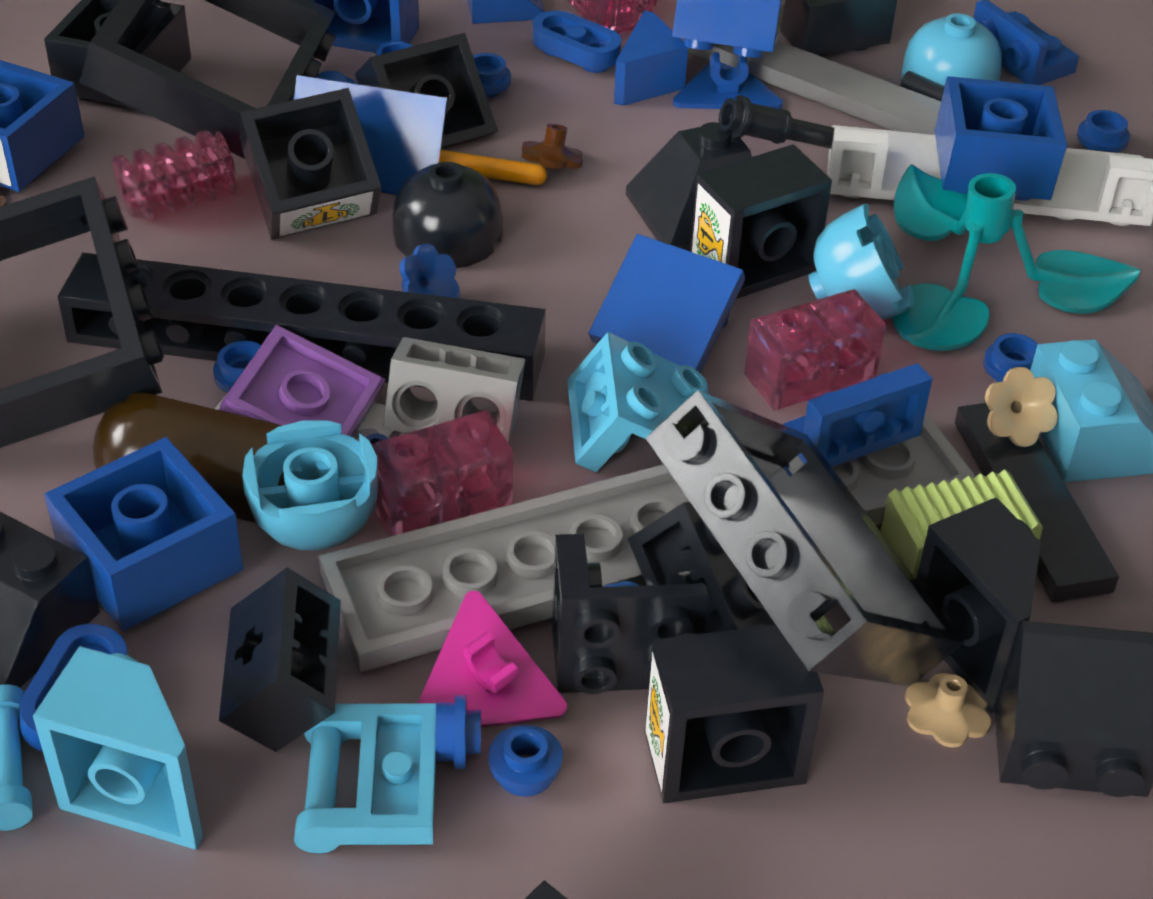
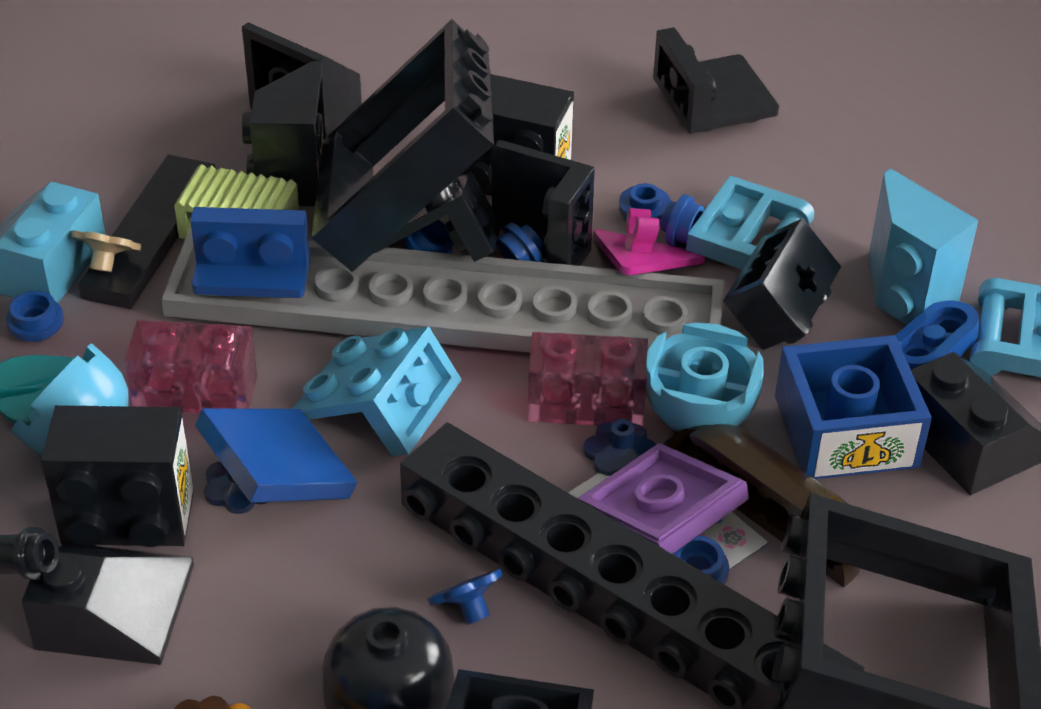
camera: 150 degrees left, 0 degrees up
(454, 378) = (534, 428): light grey brick -> none

